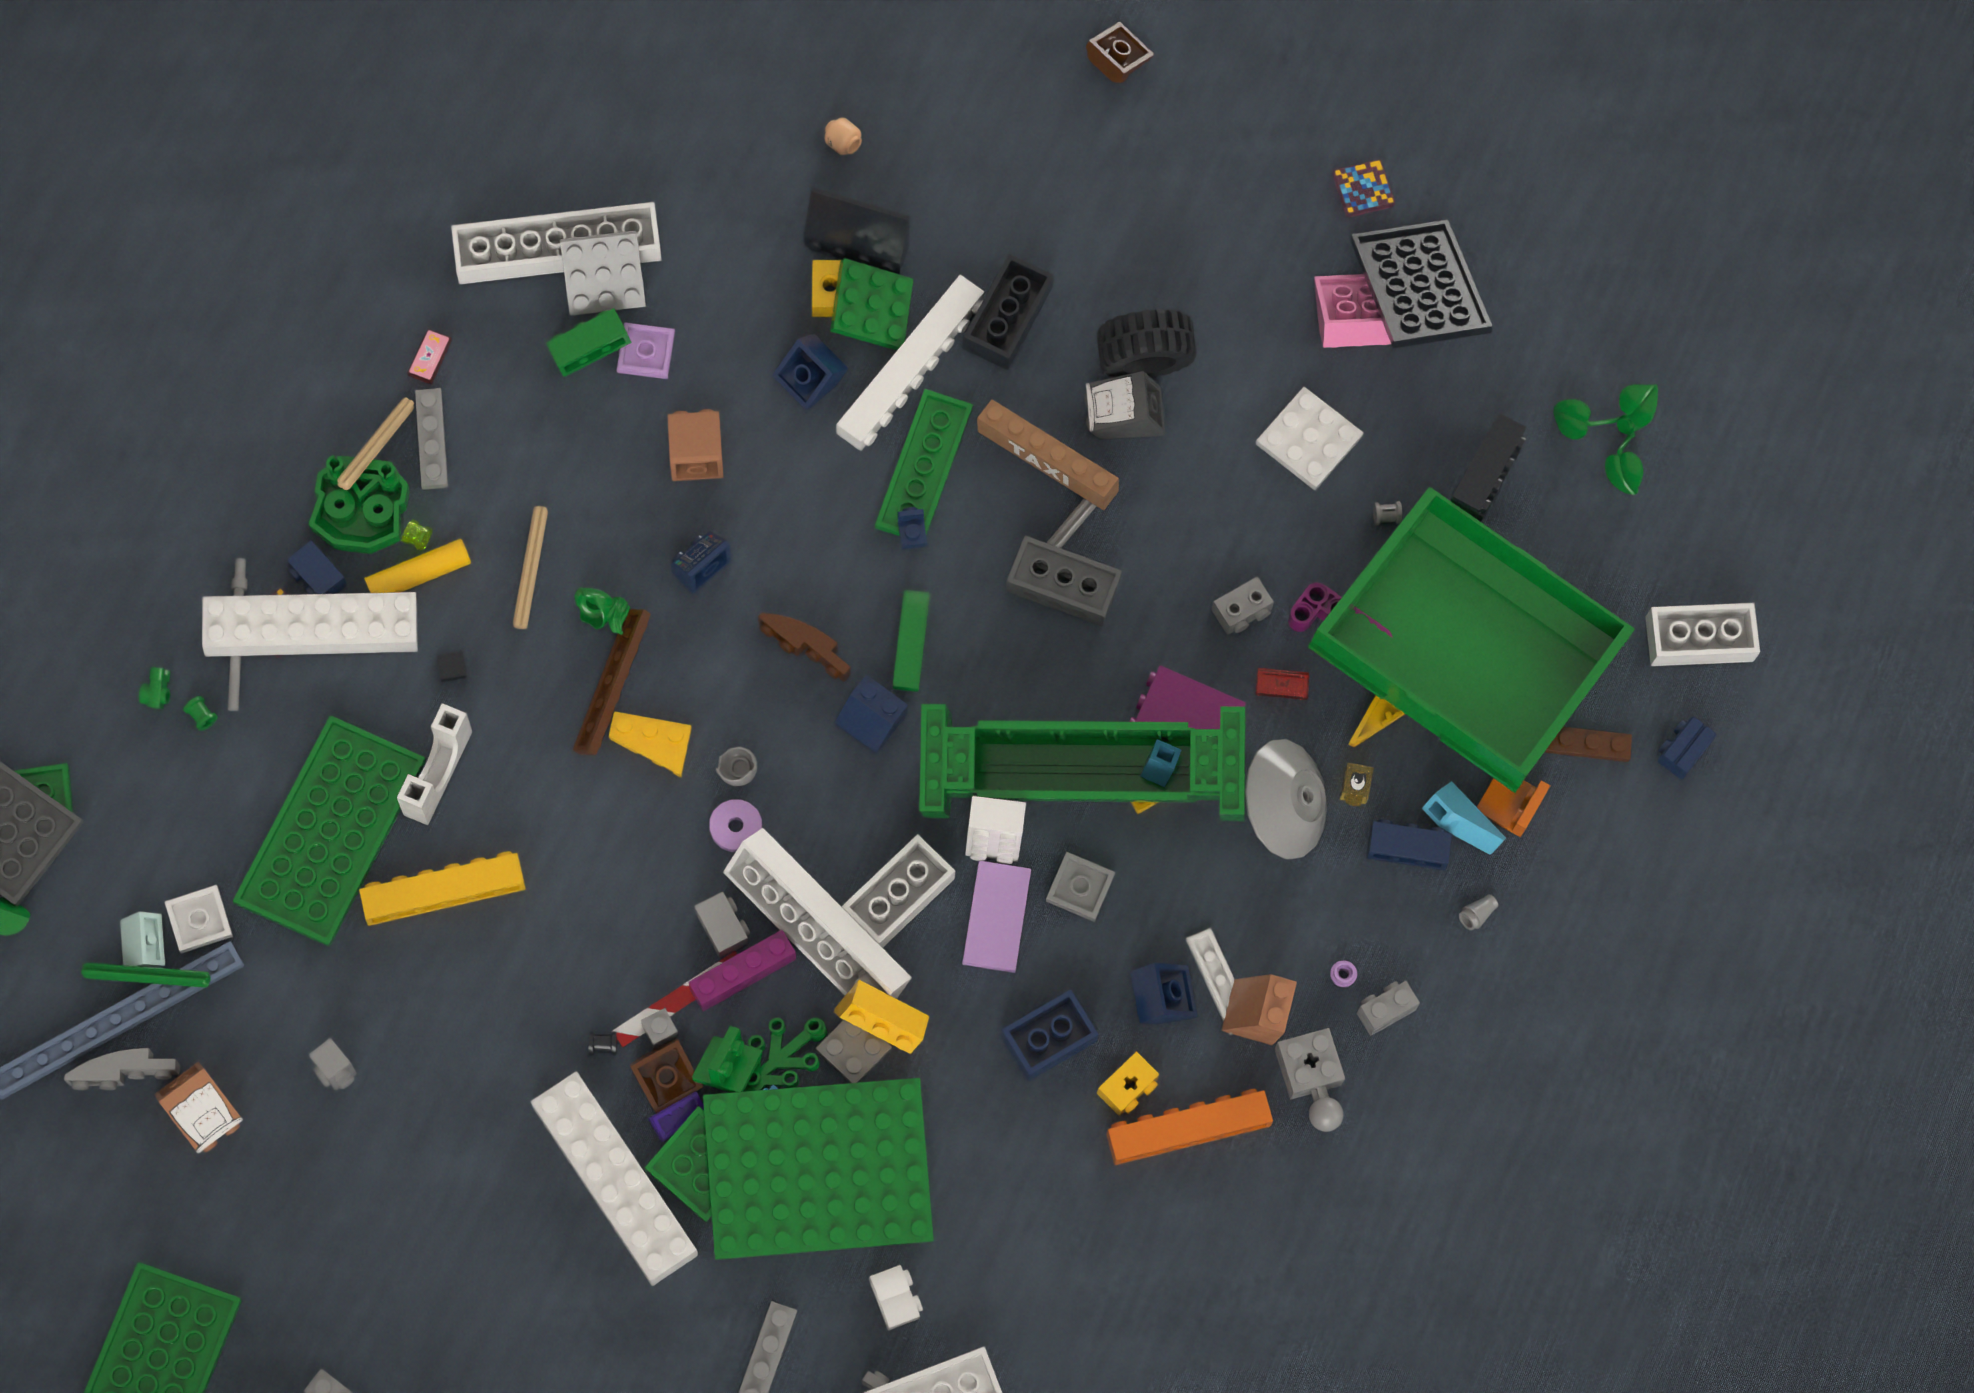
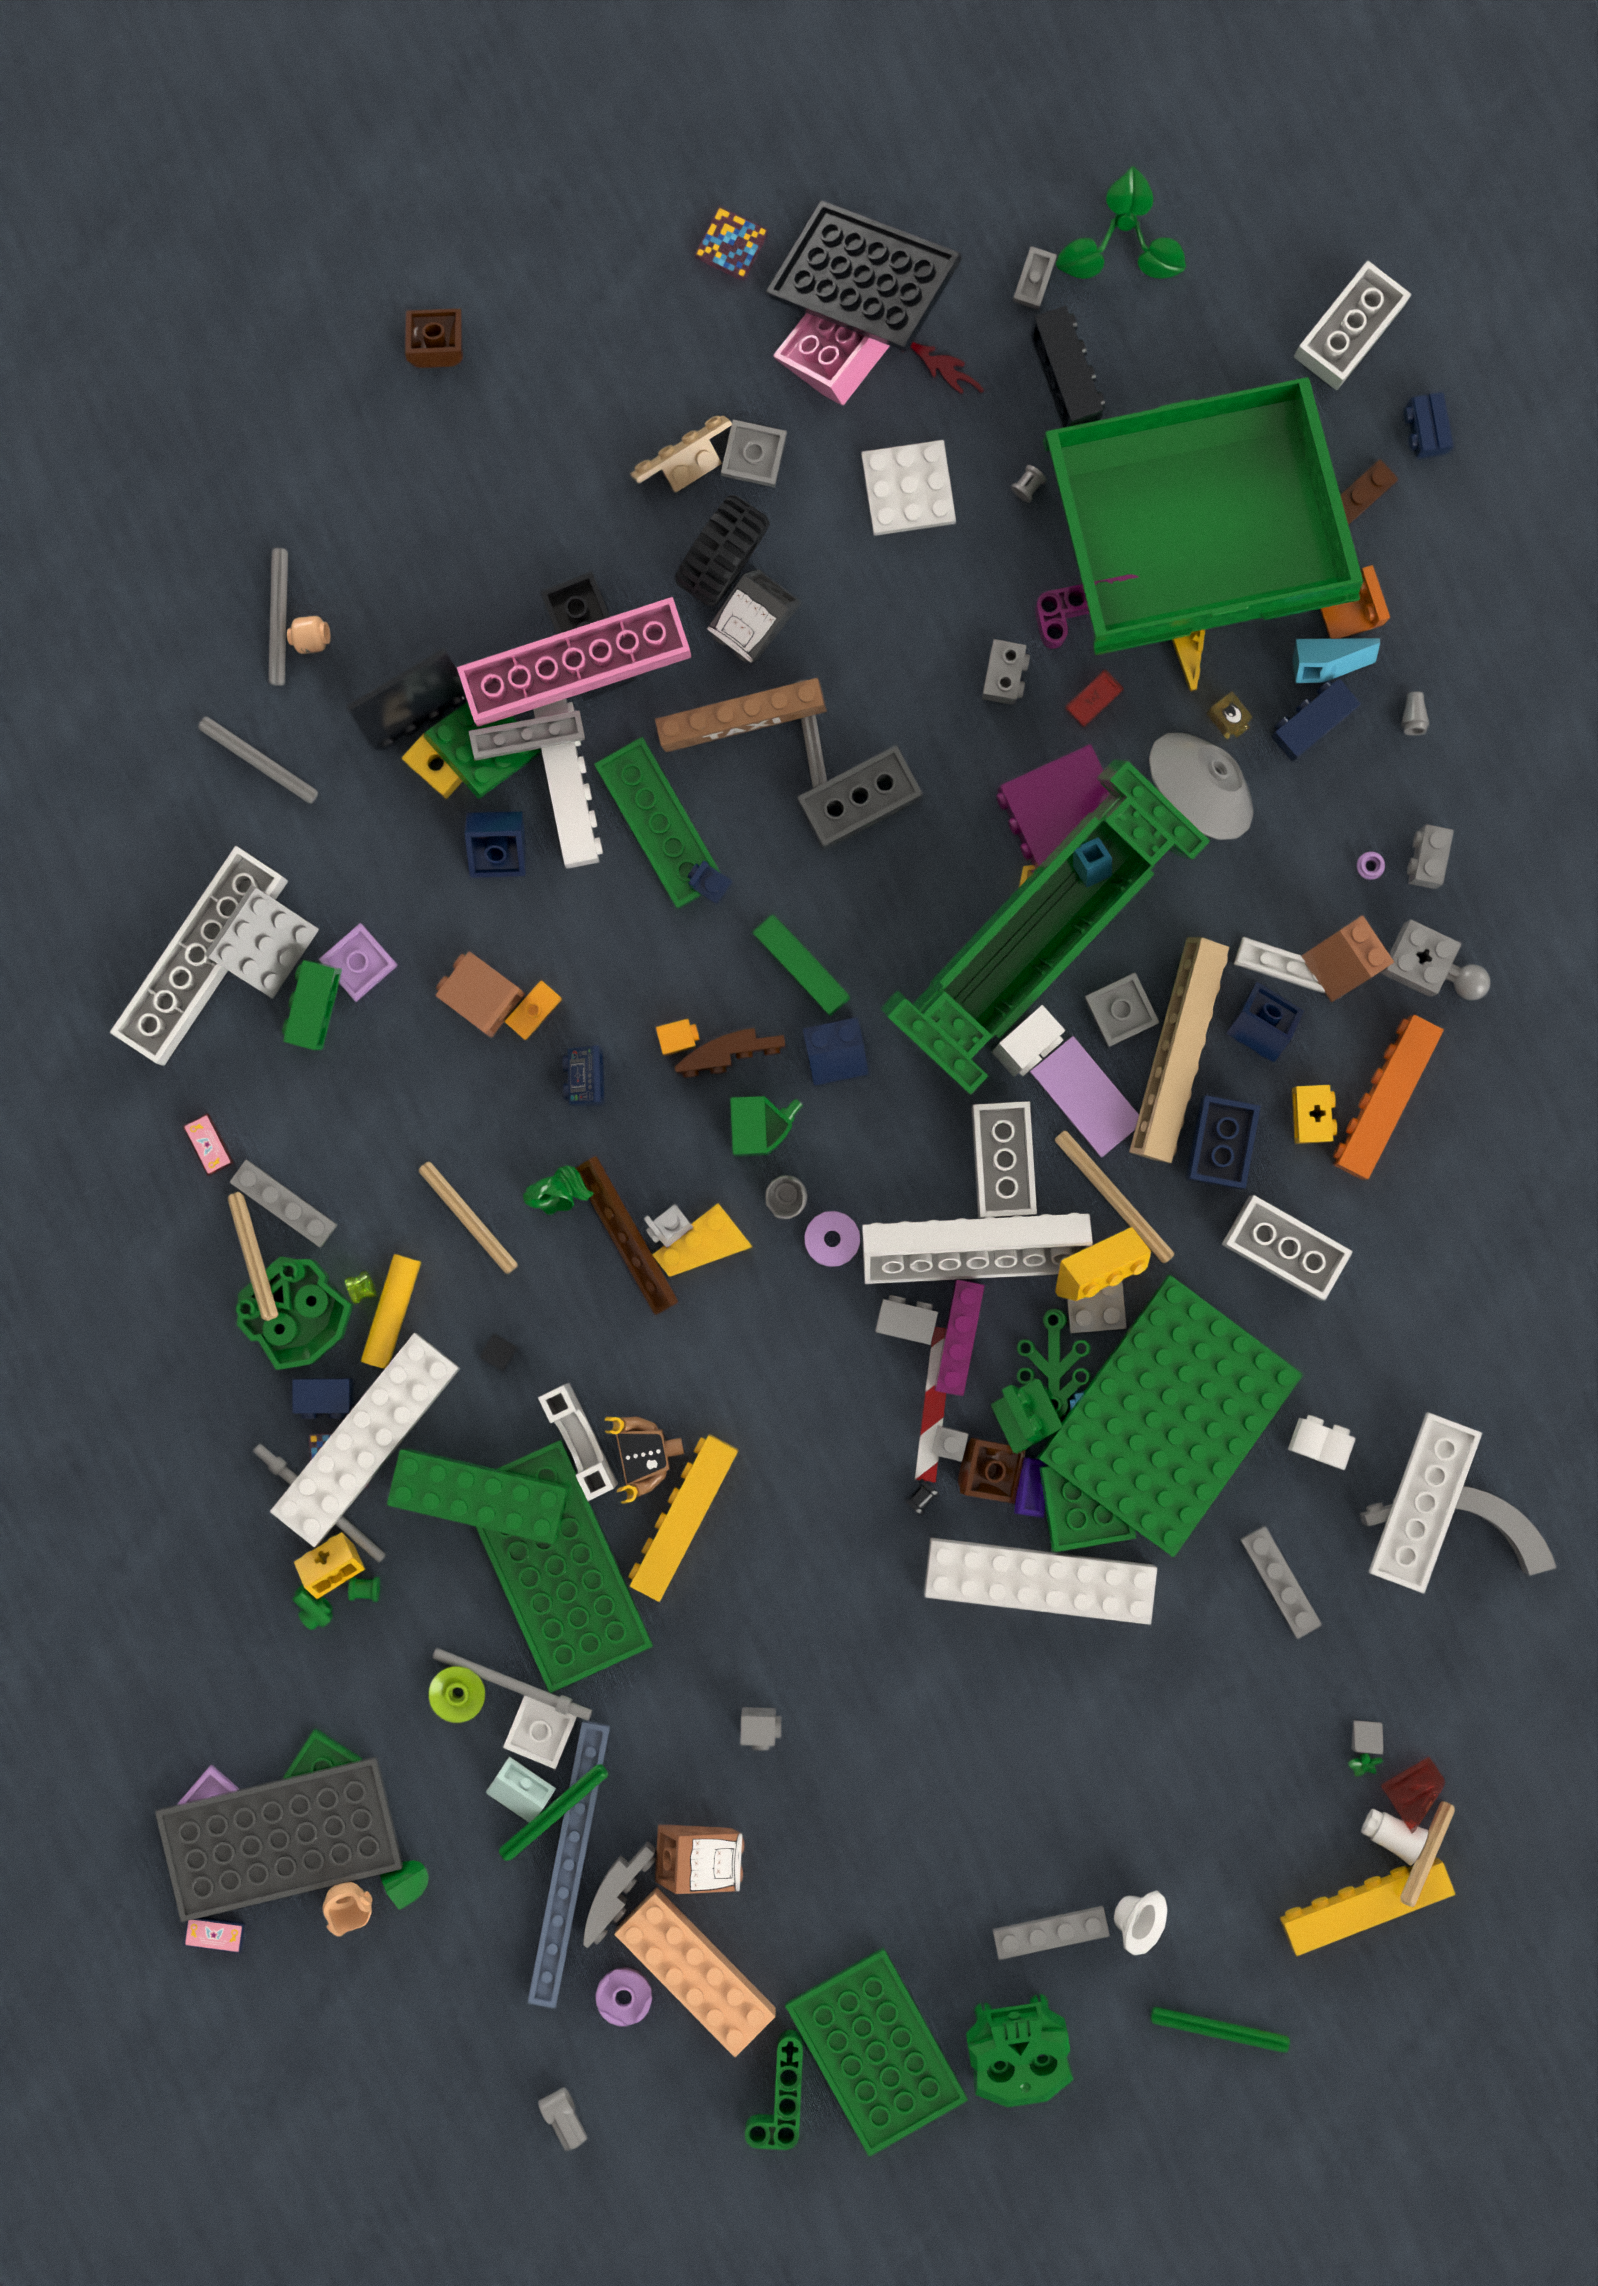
camera: 40 degrees left, 15 degrees up
(56, 1156) = (628, 1980): none -> lavender tile
(71, 1312) = (783, 2089): none -> green beam
(110, 1175) = (695, 1972): none -> light nougat brick
(168, 829) = (453, 1707): none -> lime dish
(197, 674) = (329, 1565): none -> yellow brick
(231, 914) = (562, 1704): none -> light grey bar
(335, 730) = (477, 1495): none -> green brick
(464, 821) = (642, 1454): none -> torso
(643, 705) = (668, 1226): none -> light grey bracket
(716, 491) = (533, 1010): none -> light orange plate
(727, 175) = (258, 760): none -> light grey axle
(768, 702) = (759, 1125): none -> green piece
(784, 598) = (677, 1037): none -> light orange brick
(837, 108) = (278, 611): none -> light grey axle
(902, 324) = (526, 735): none -> light grey plate
(942, 997) = (1114, 1196): none -> tan axle
(980, 310) = (574, 662): none -> bright pink brick
(1014, 1146) = (1287, 1248): none -> white brick
(1088, 949) = (1179, 1049): none -> tan brick
(1189, 279) = (687, 459): none -> tan bracket
(1235, 317) = (753, 453): none -> light grey plate
(1416, 391) = (945, 365): none -> dark red piece
(1530, 400) = (1034, 278): none -> light grey plate

